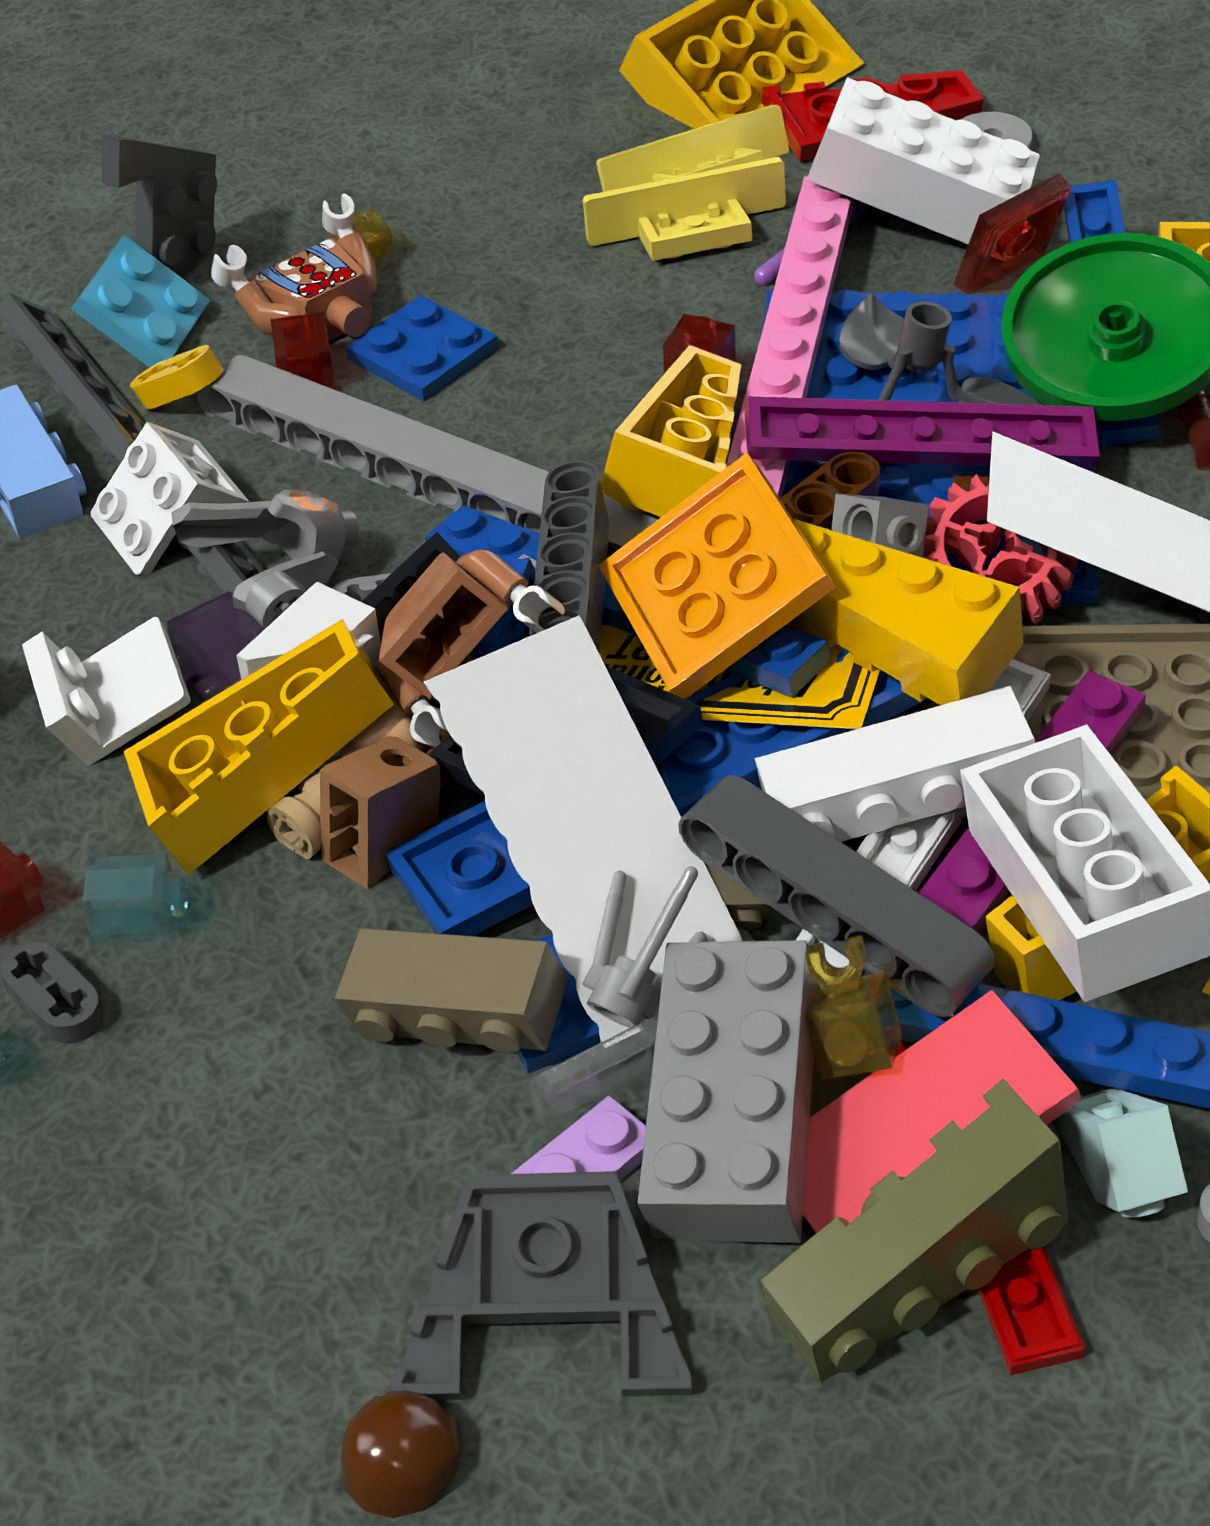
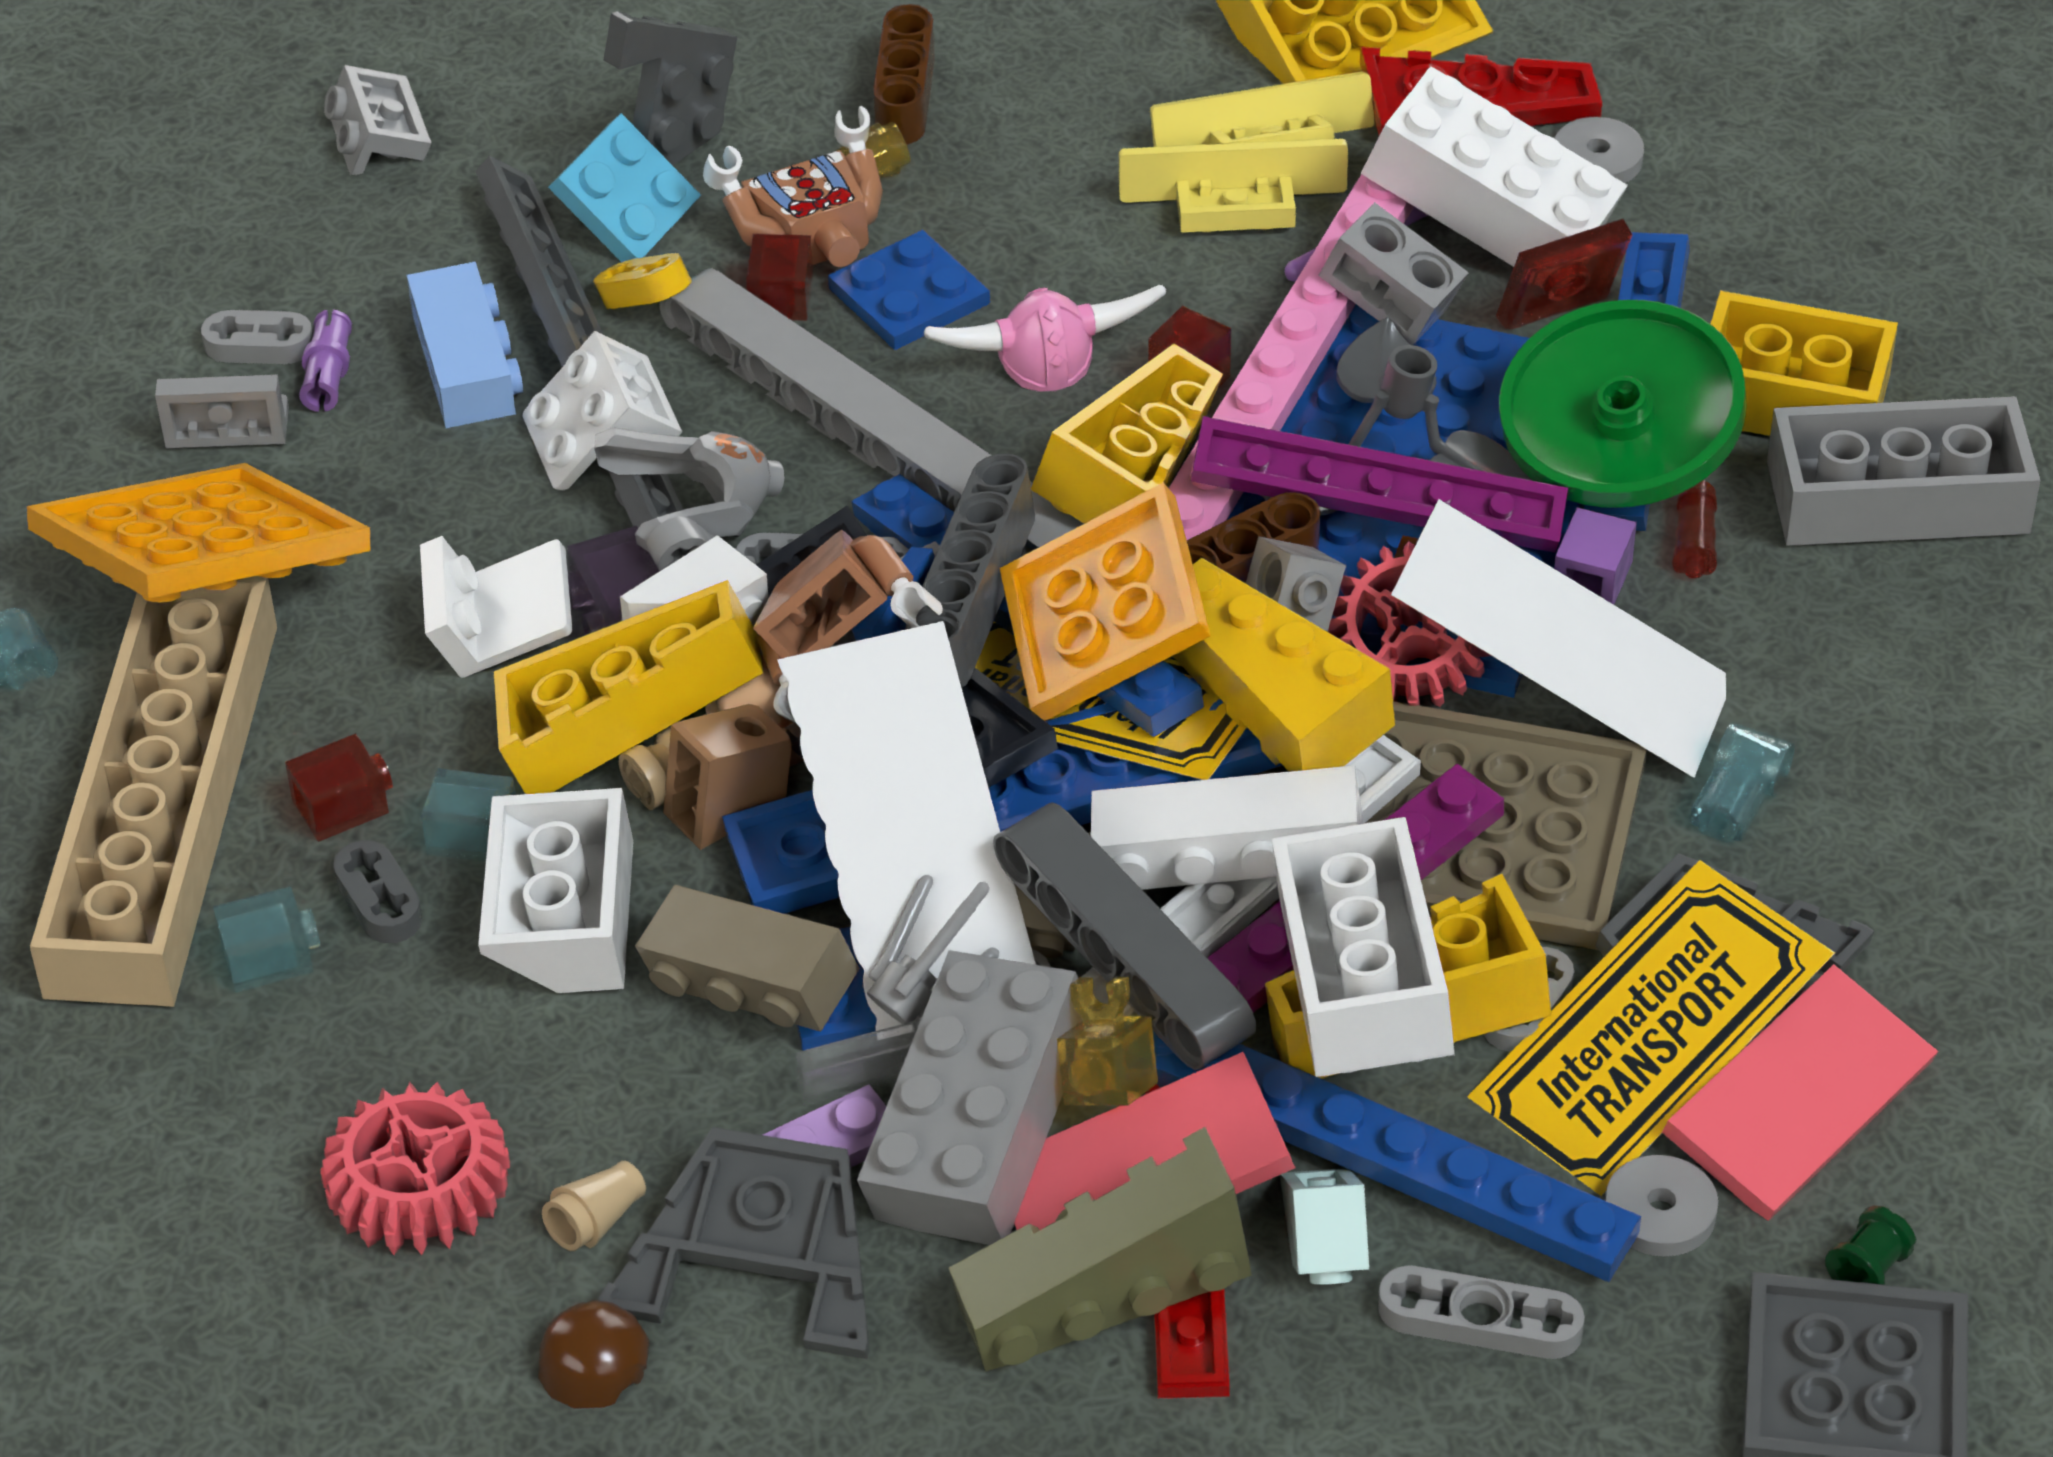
camera: 10 degrees right, 0 degrees up
(137, 1311) = (415, 1167): none -> coral gear
(239, 955) = (559, 888): none -> white slope
(355, 1285) = (590, 1206): none -> tan cone
(367, 165) = (905, 70): none -> reddish brown beam
(564, 362) = (1046, 336): none -> bright pink helmet
(866, 253) = (1393, 273): none -> light grey brick
(1131, 457) = (1597, 552): none -> medium lavender brick

